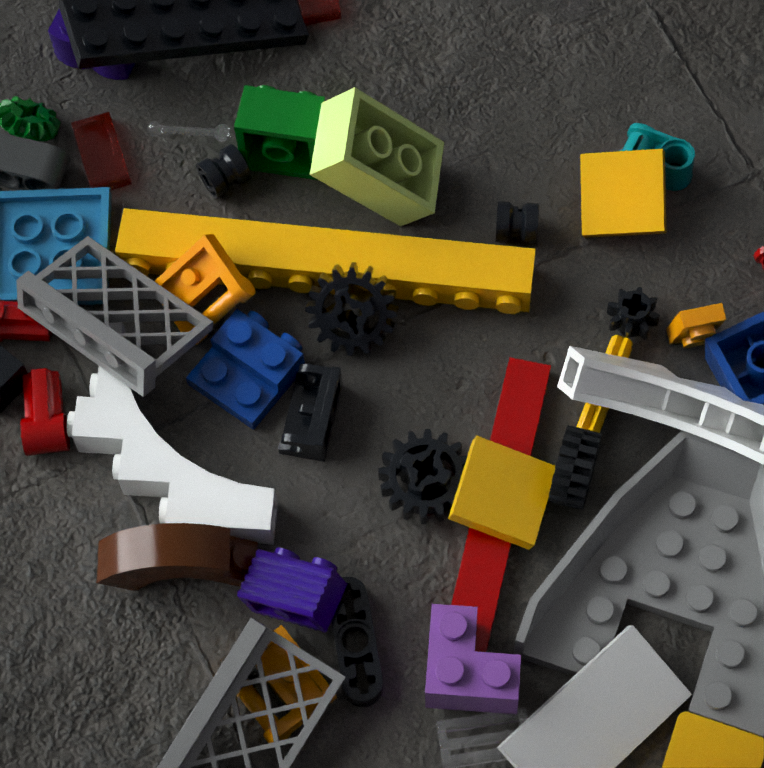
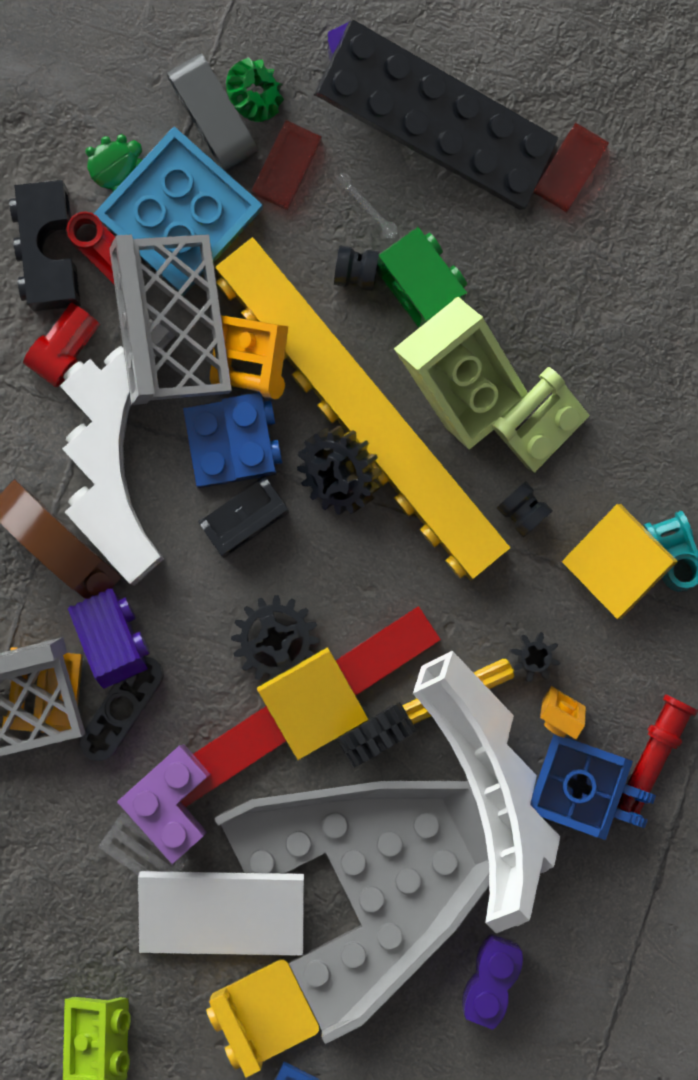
camera: 40 degrees right, 20 degrees up
(475, 152) = (546, 426): none -> yellowish green plate

